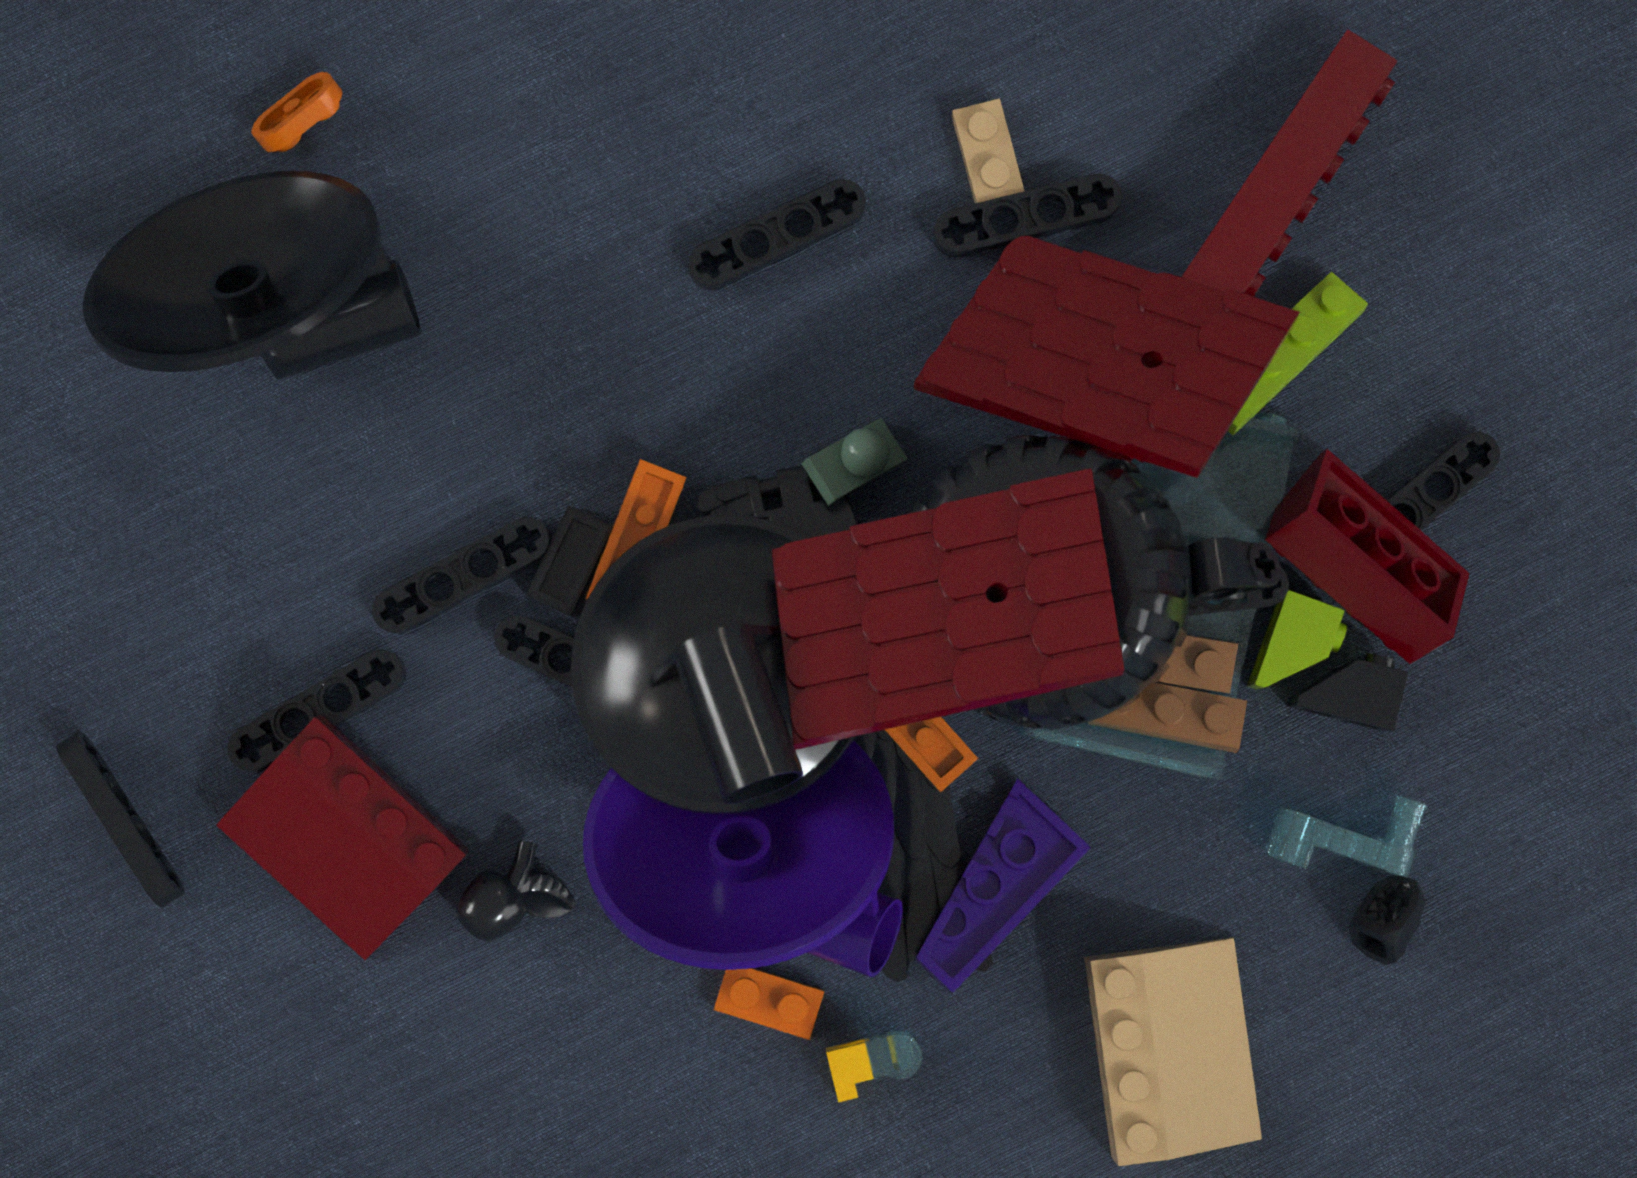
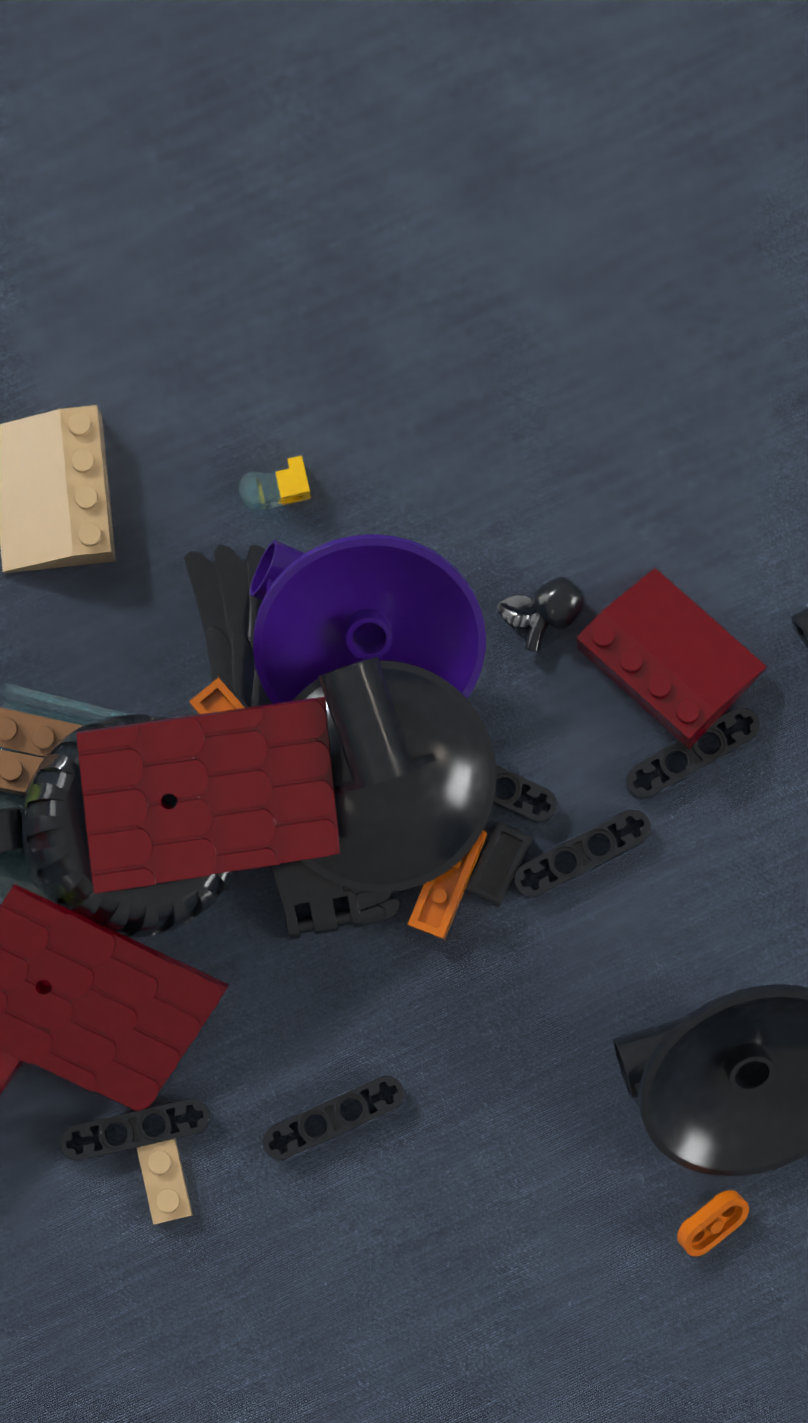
camera: 175 degrees left, 5 degrees down
(770, 1001) = (338, 523): orange plate -> none
(854, 461) = (276, 933): sand green tile -> none
(1006, 879) = (171, 616): dark purple wing -> none

